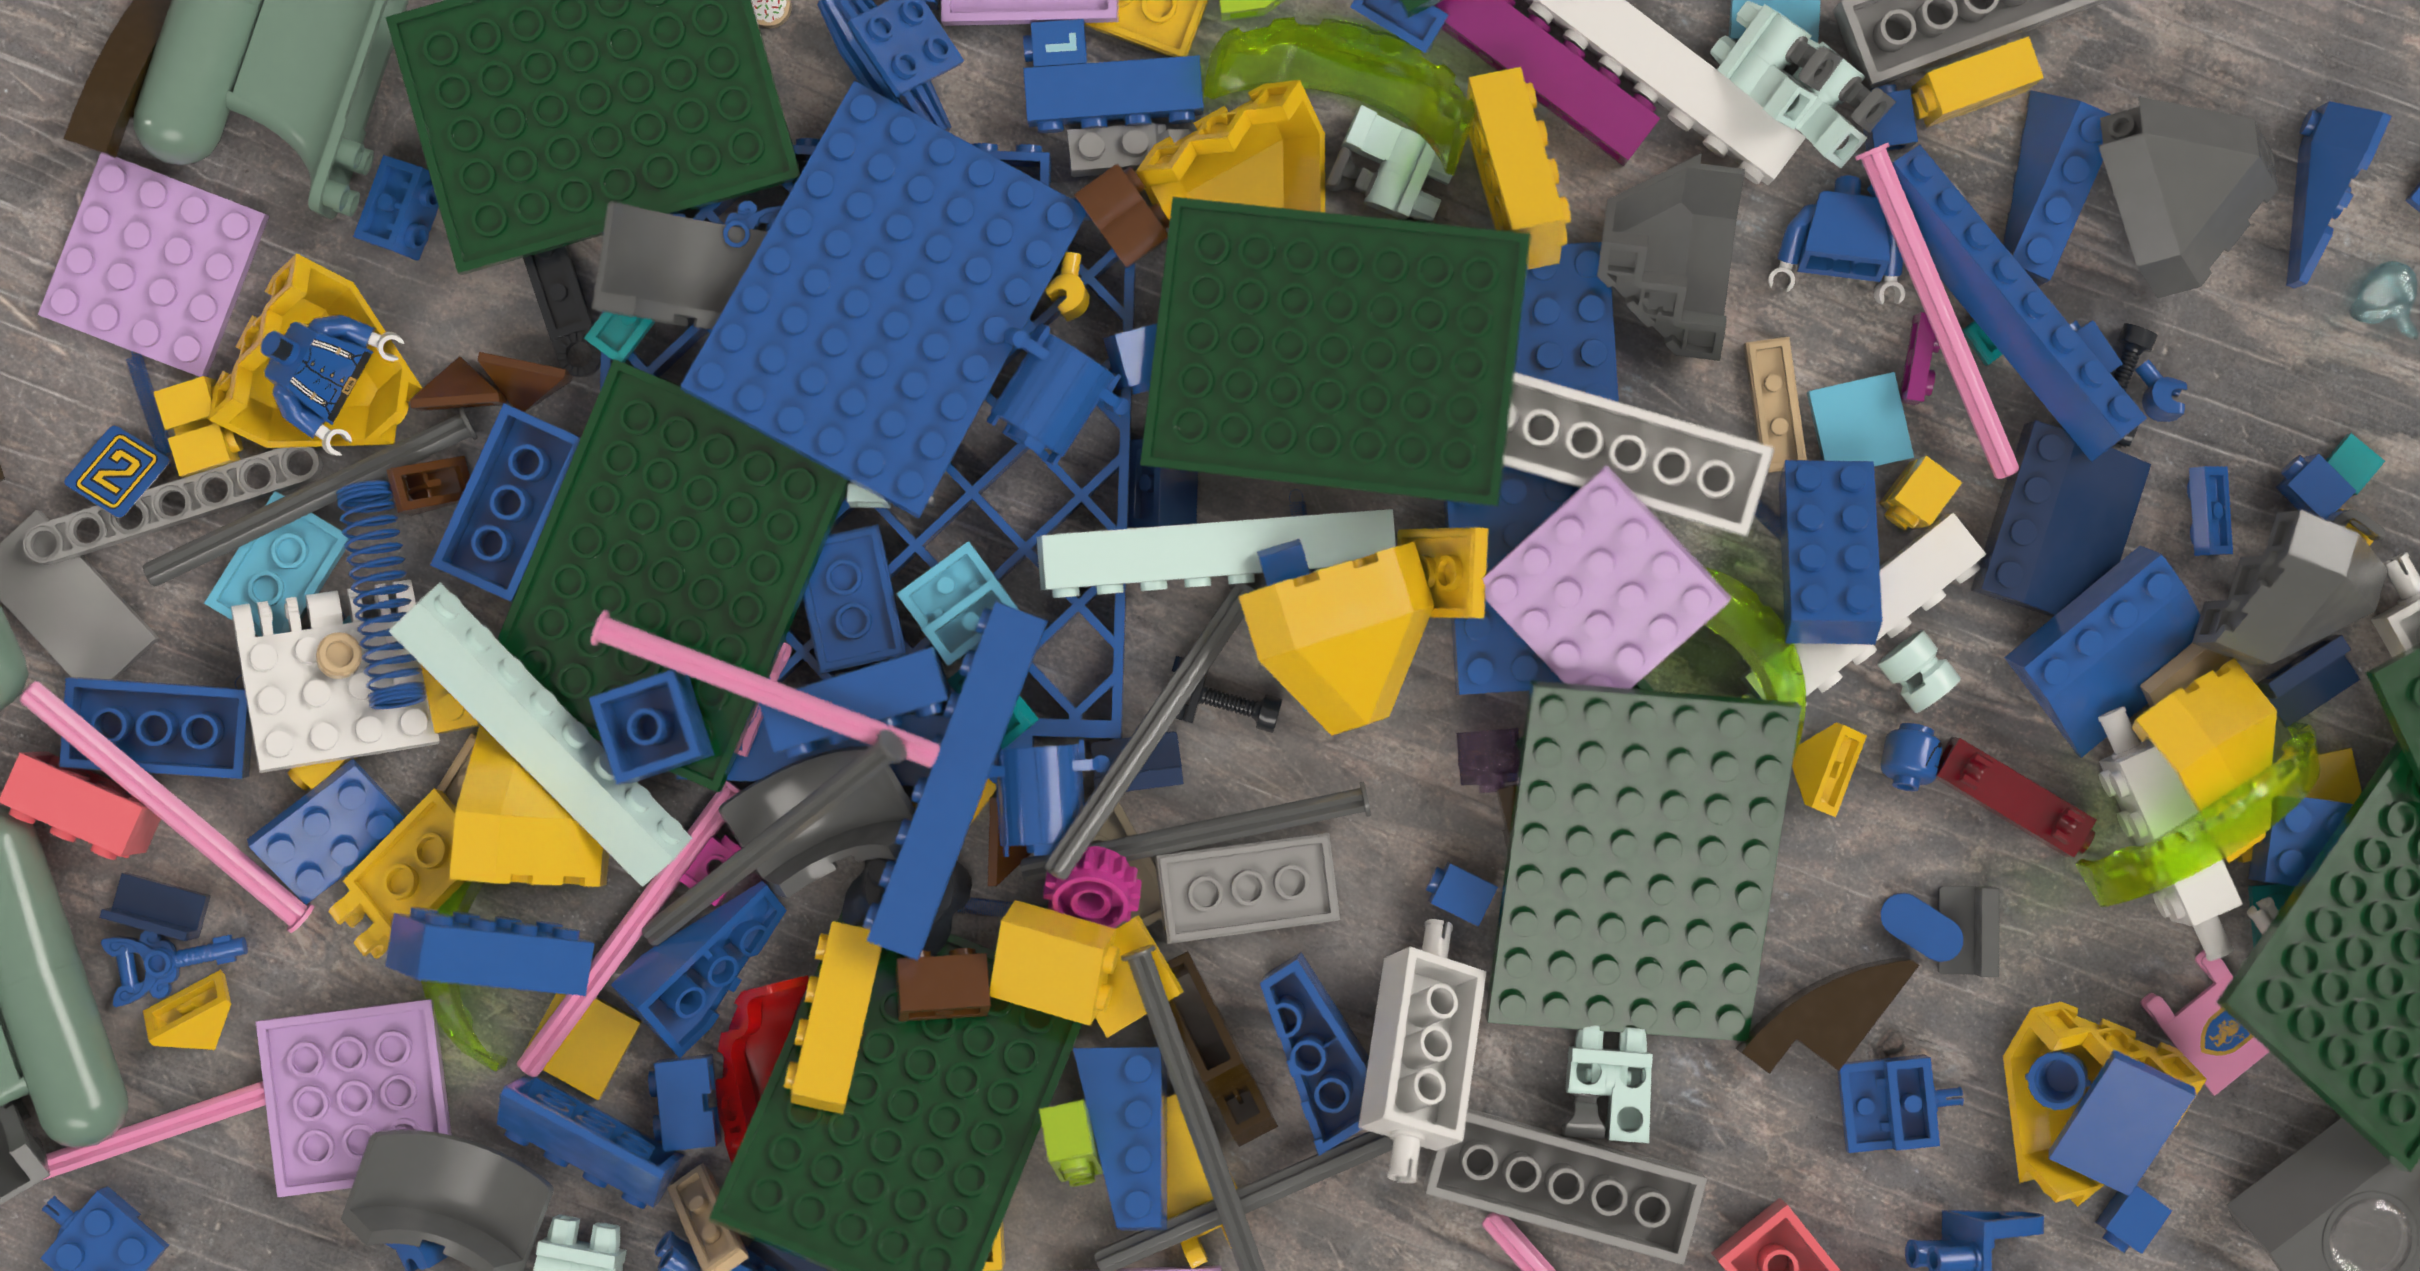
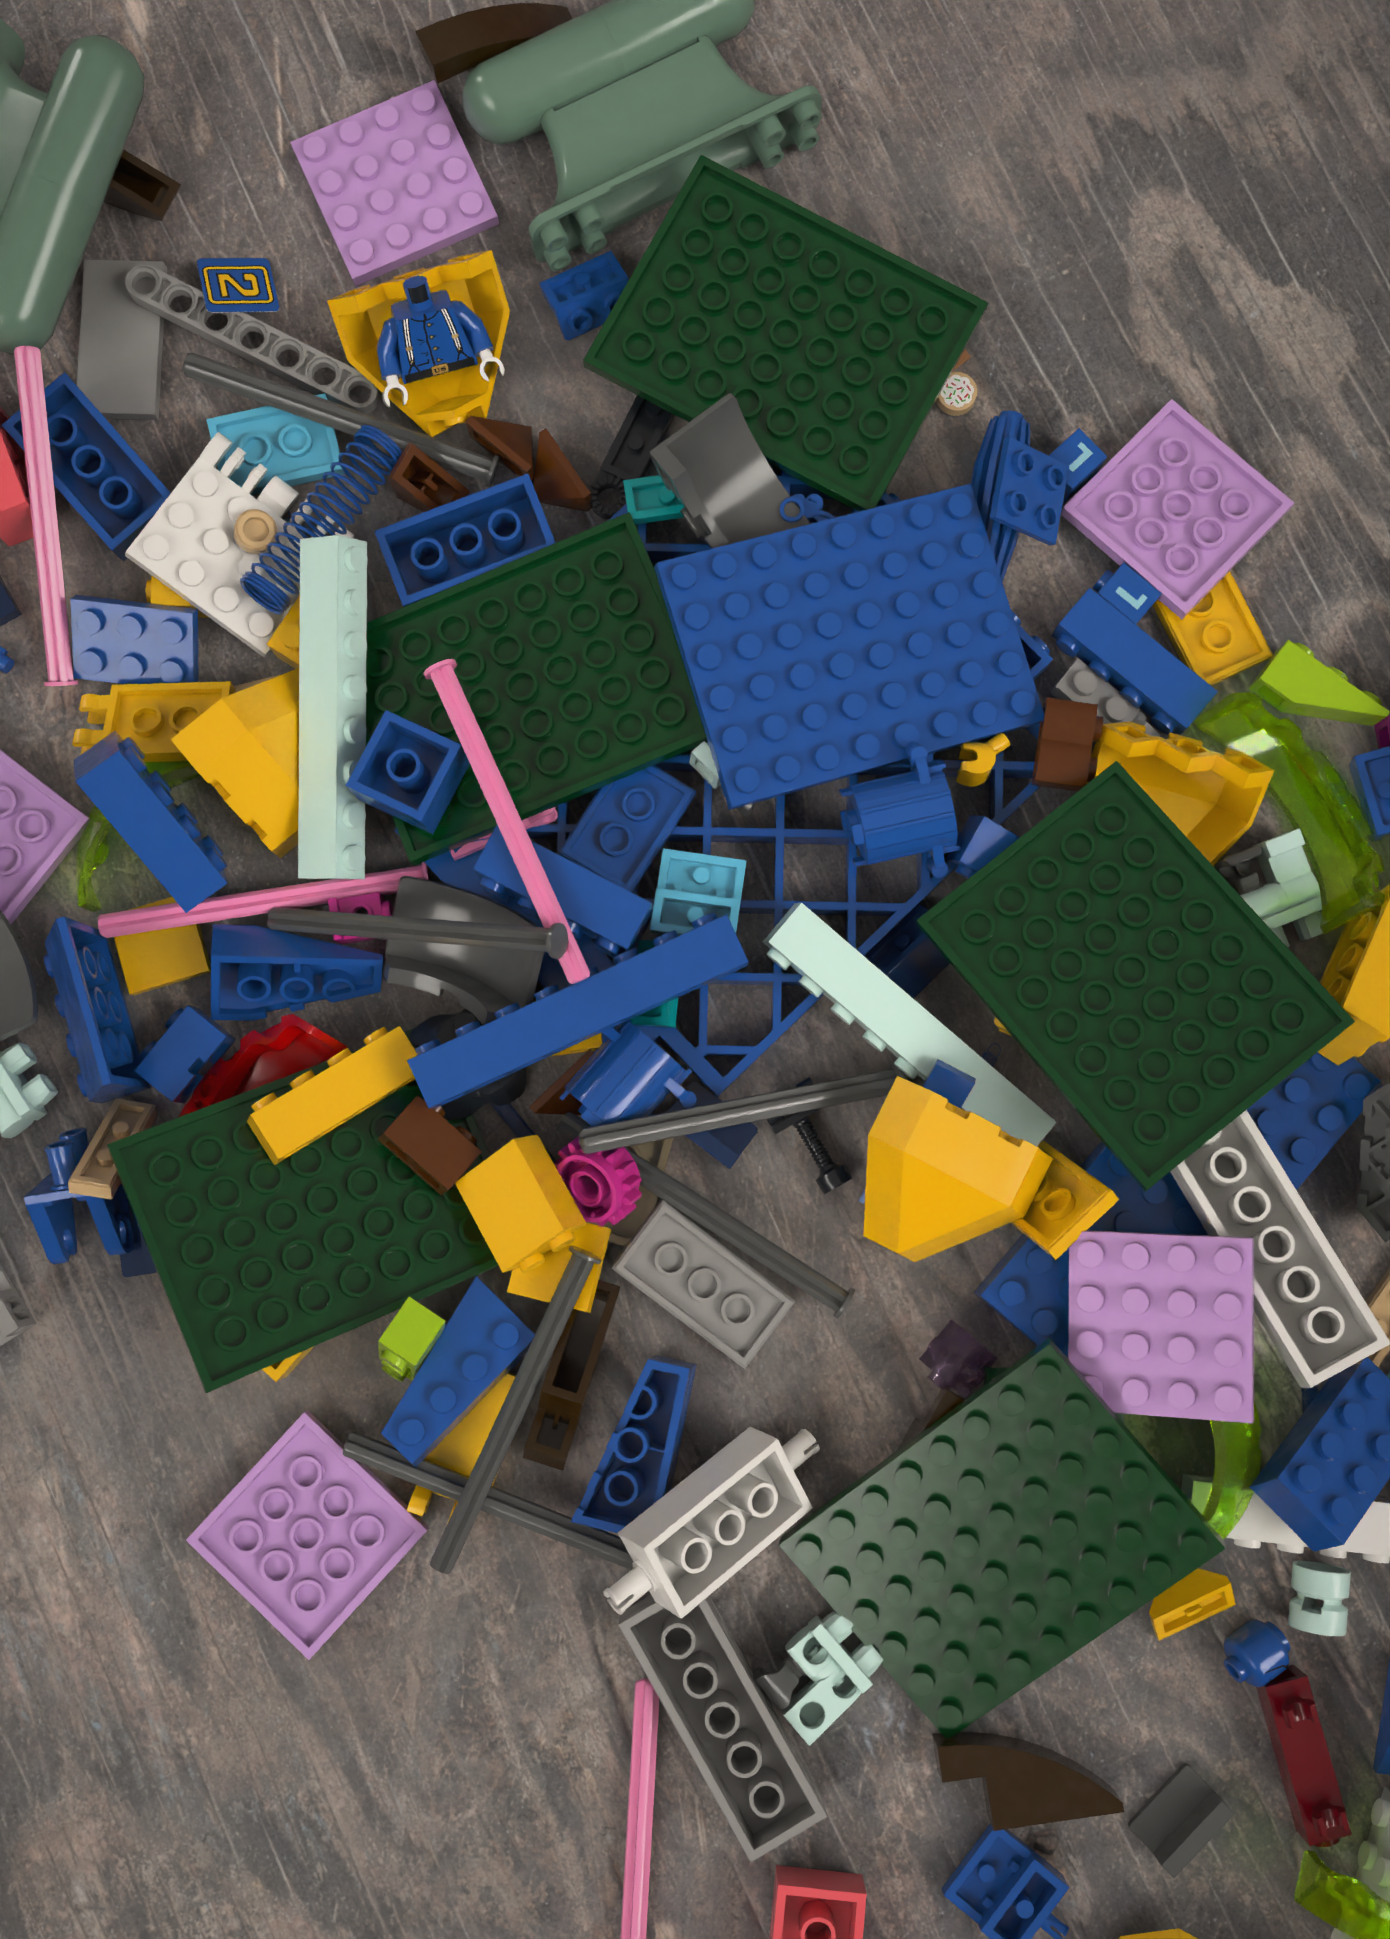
camera: 45 degrees right, 5 degrees down
(158, 423) = (304, 270): blue piece -> none
(197, 442) = (309, 316): yellow piece -> none
(1460, 893) = (847, 1434): blue brick -> none
(1921, 927) = (1148, 1782): blue tile -> none

